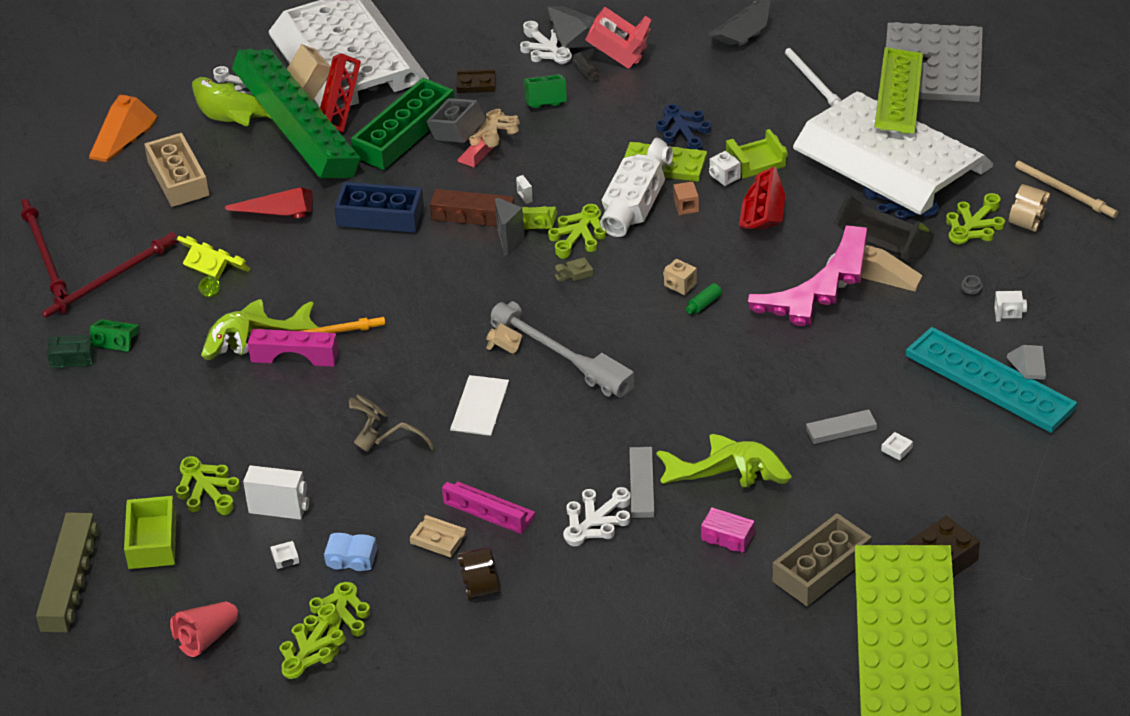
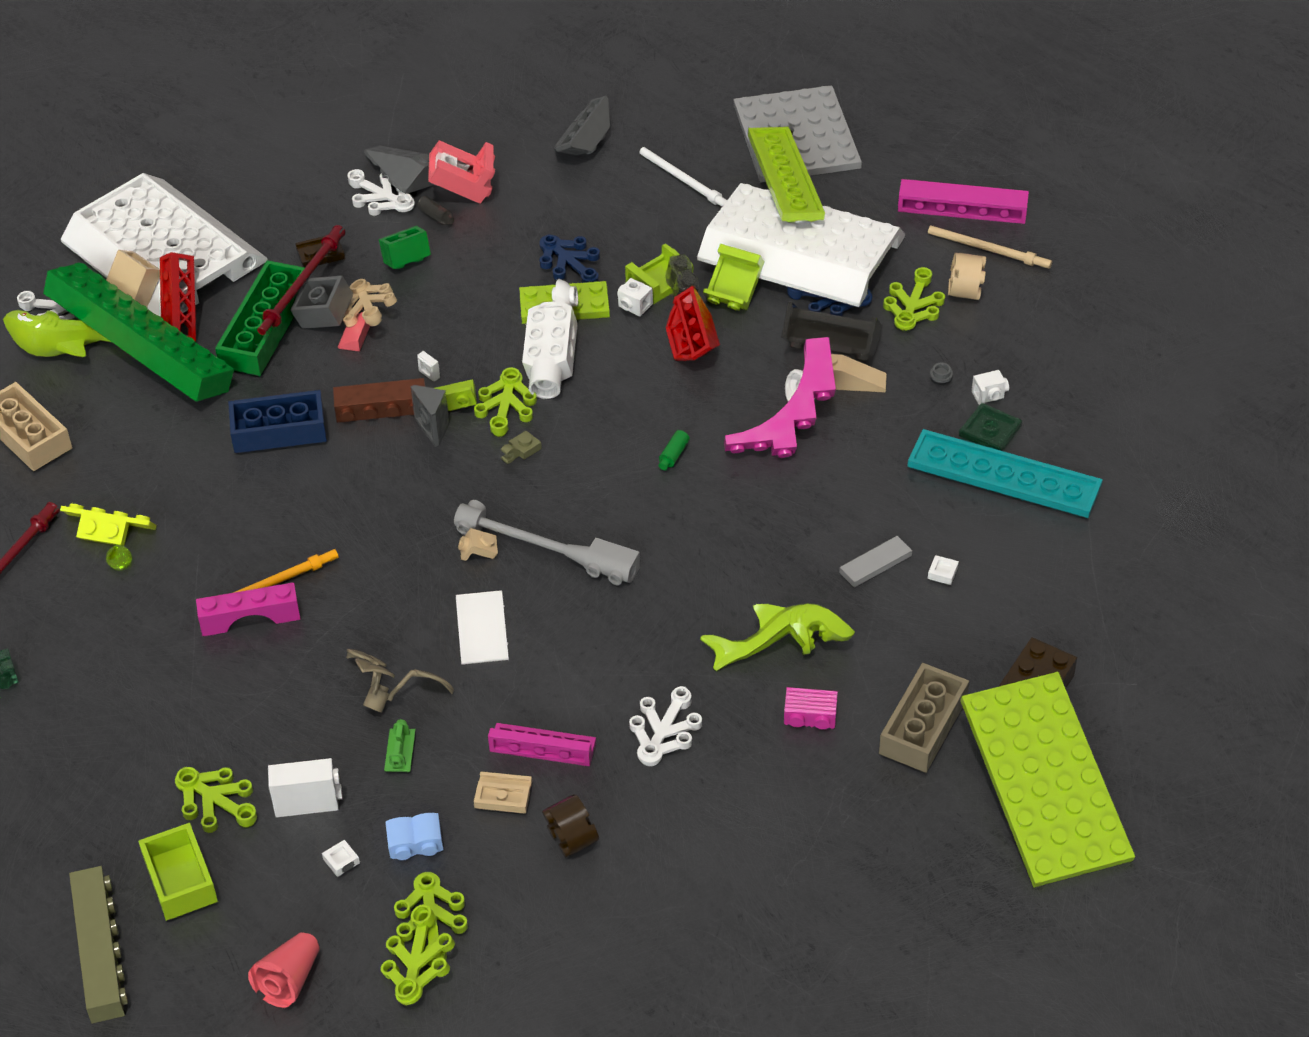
camera: 20 degrees left, 5 degrees up
(113, 334) = (31, 640): green bracket -> none
(236, 326) = (177, 602): lime piece -> none
(286, 203) = (170, 440): red wedge -> none
(370, 482) = (400, 748): none -> bright green hinge
(481, 73) = (329, 243): none -> dark red bar
(641, 482) = (695, 674): light grey tile -> none
(680, 276) = (639, 430): tan brick -> none
(686, 198) = (607, 339): nougat brick -> none
(770, 155) = (680, 275): none -> clear smoke brick
(818, 168) = (734, 277): none -> lime panel
(994, 338) = (990, 427): none -> clear green plate
(1029, 361) = (1037, 445): light grey slope -> none
(1058, 145) = (963, 201): none -> dark pink brick

